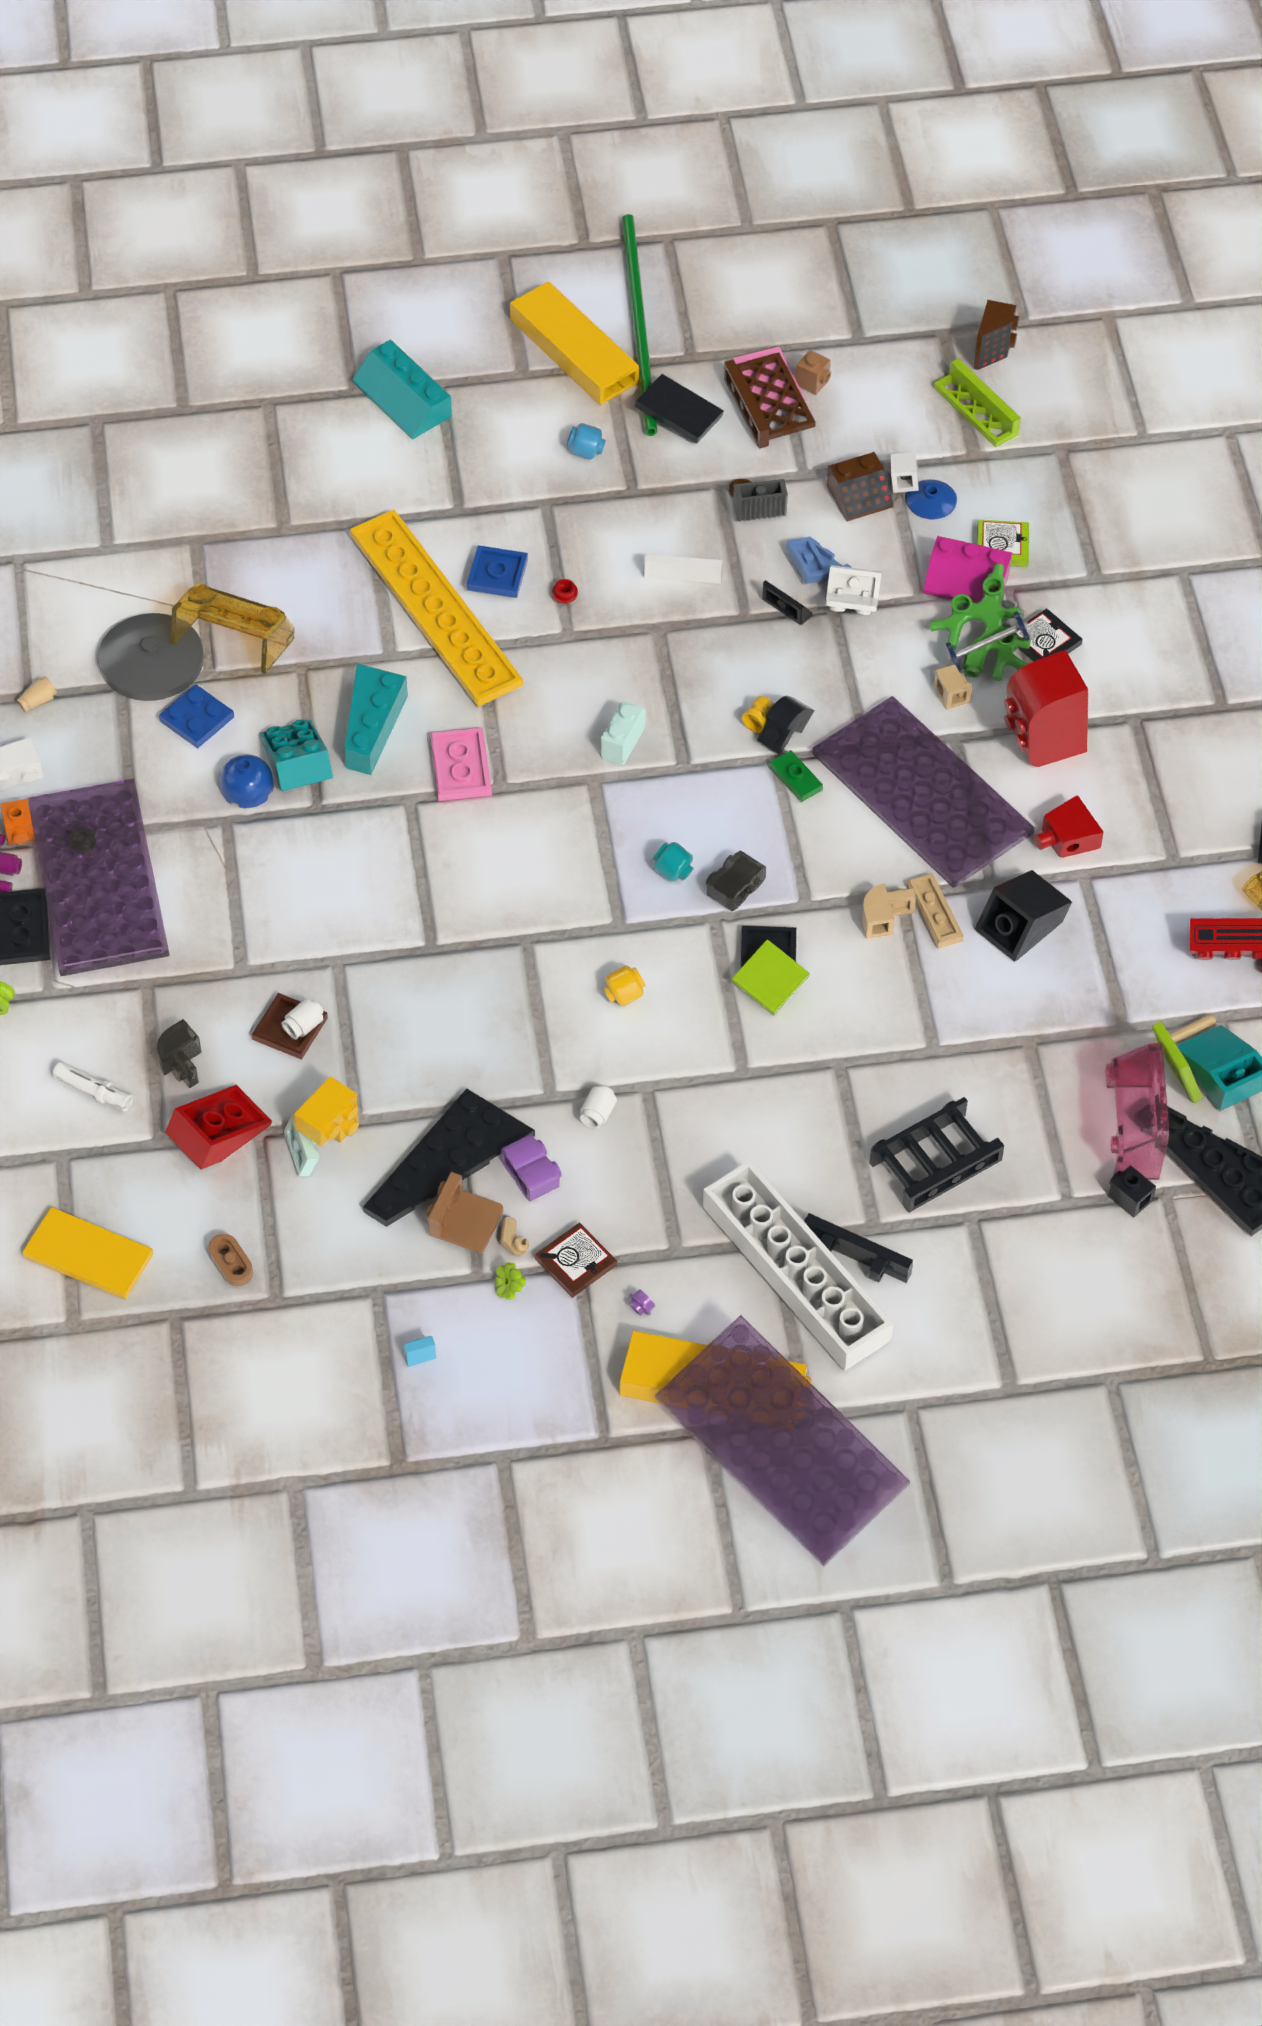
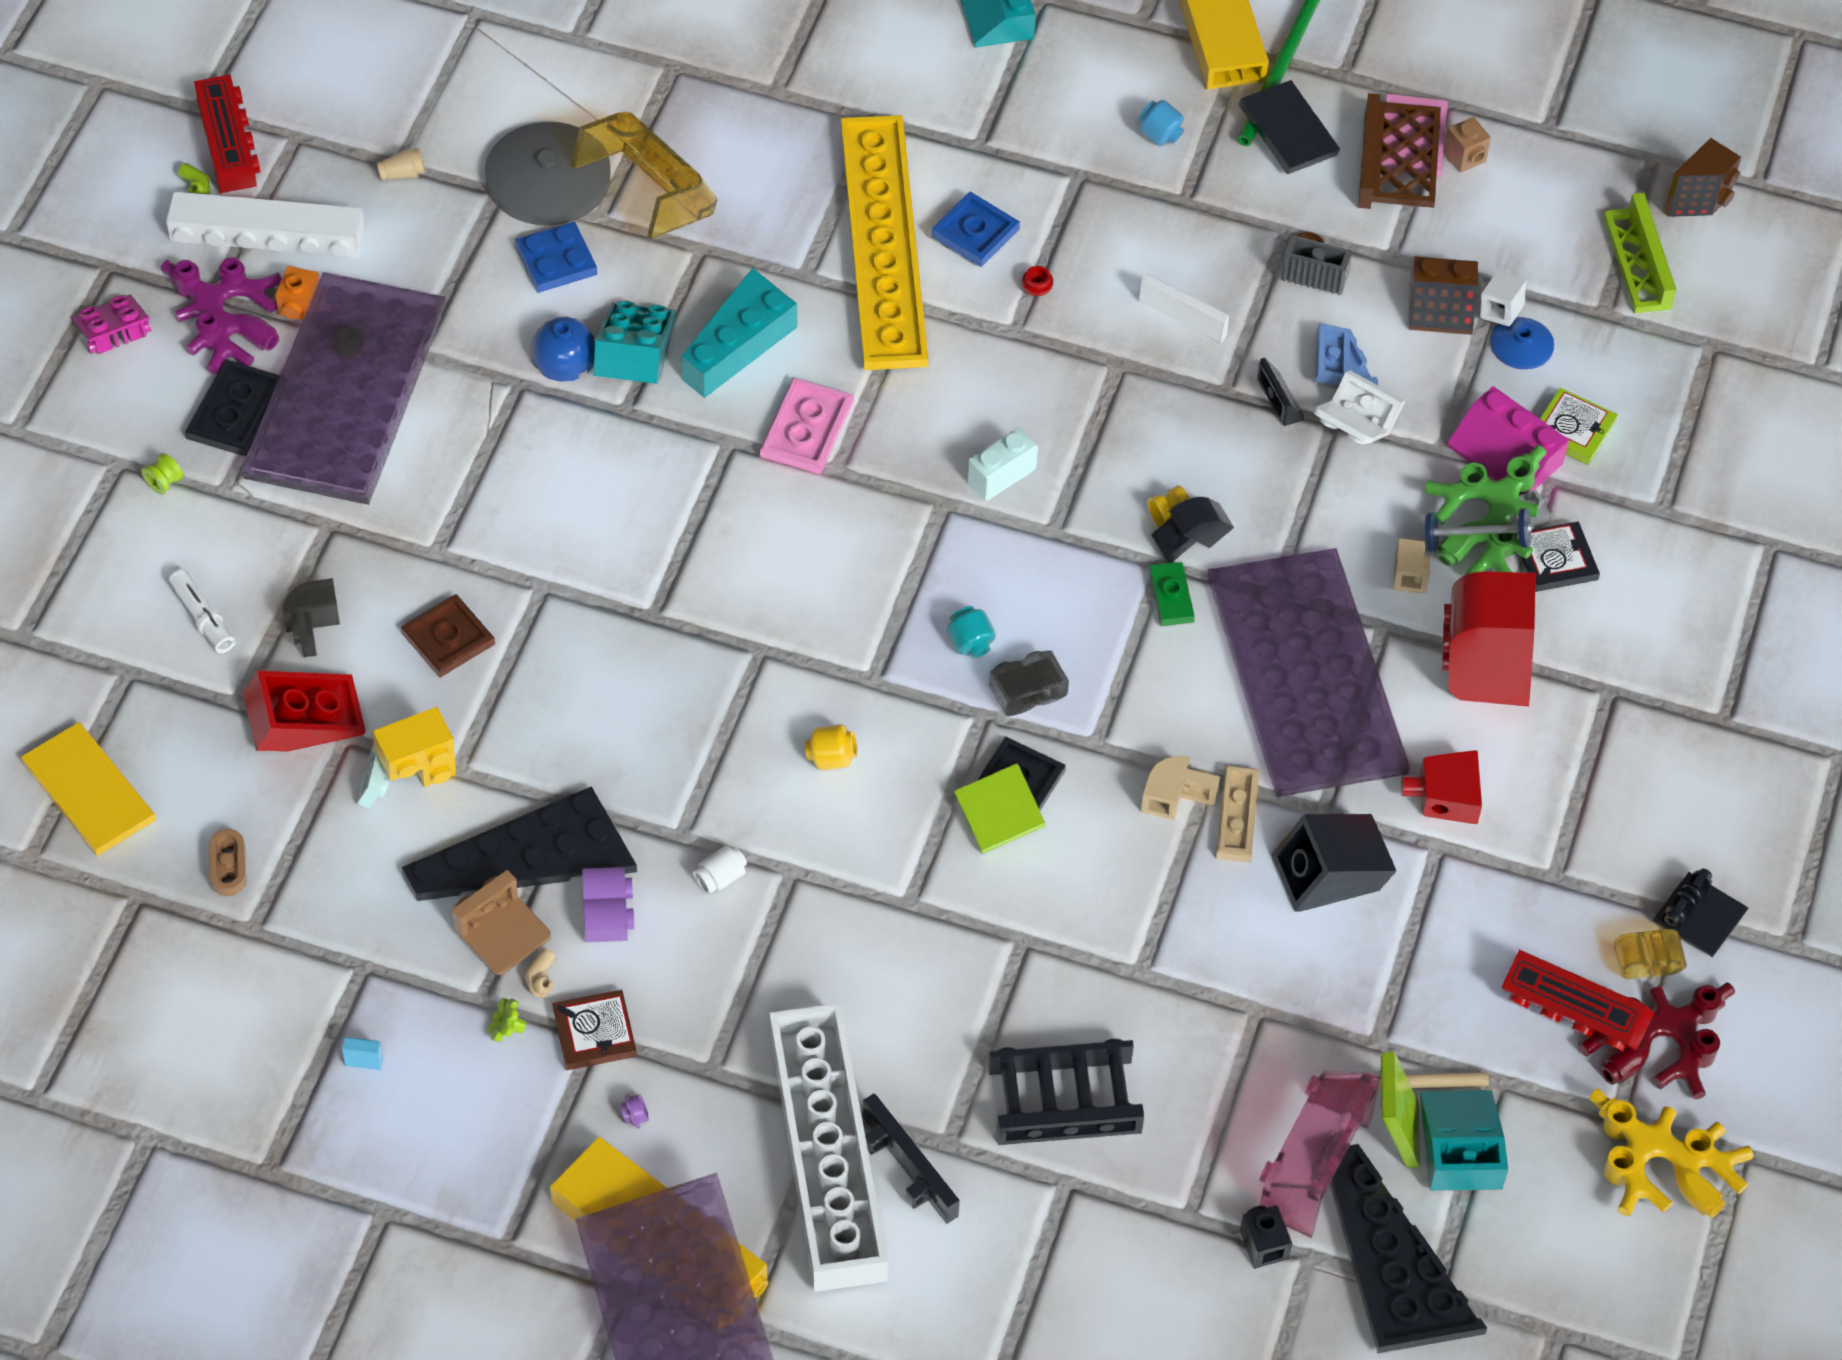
camera: 25 degrees right, 0 degrees up
(303, 1018) = (459, 632): white brick -> none

